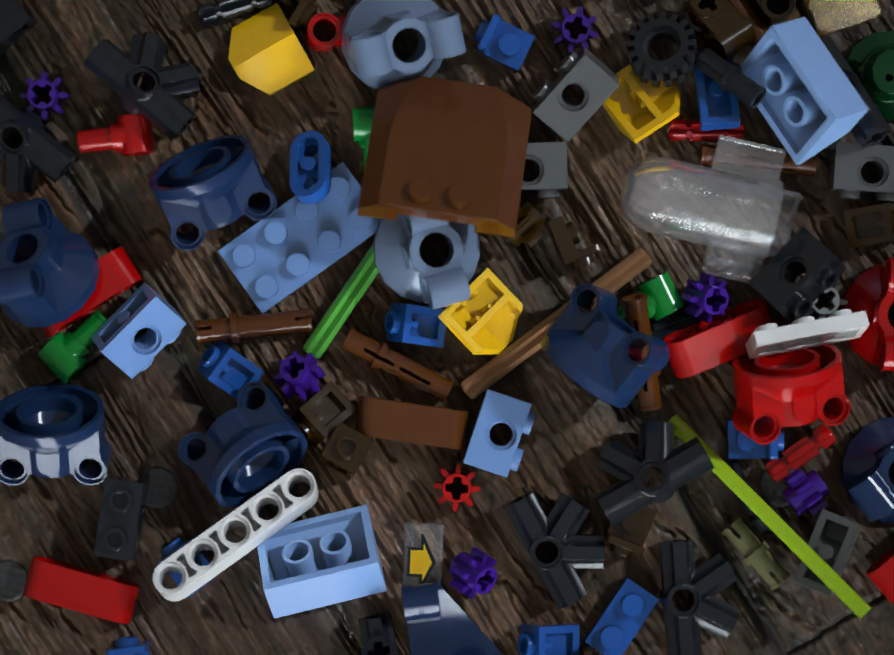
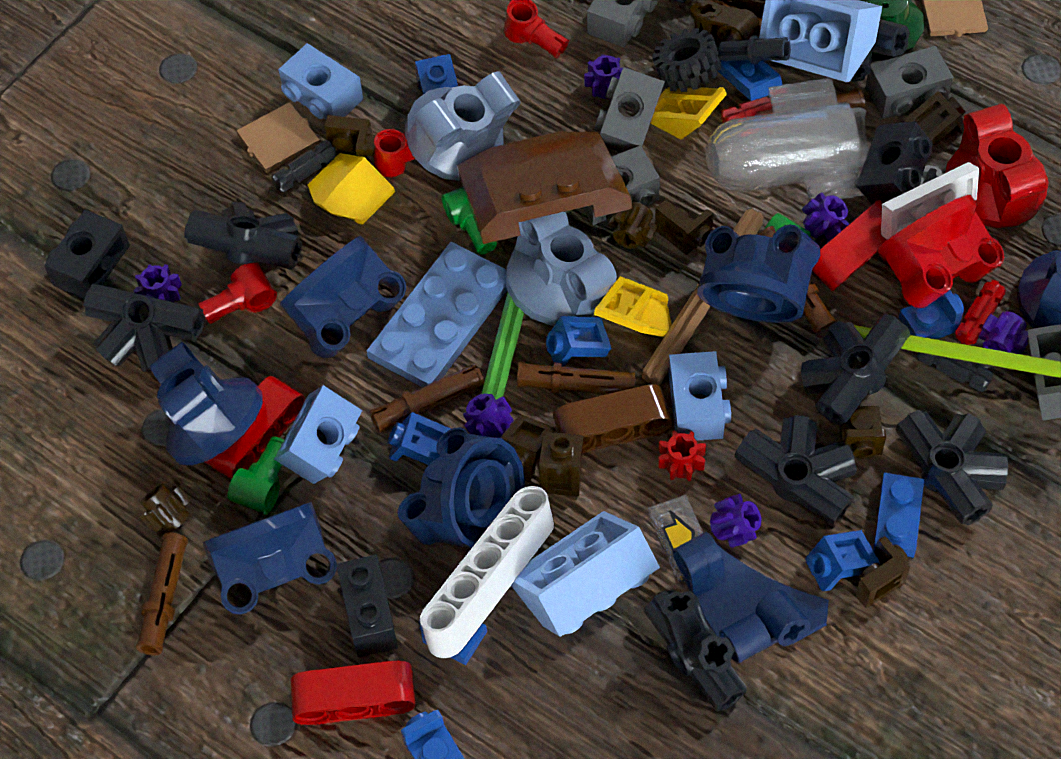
camera: 20 degrees left, 30 degrees down
(308, 170) = (424, 250): blue plate -> none
(503, 42) = (549, 111): blue bracket -> none
(755, 553) = (990, 406): olive pin -> none

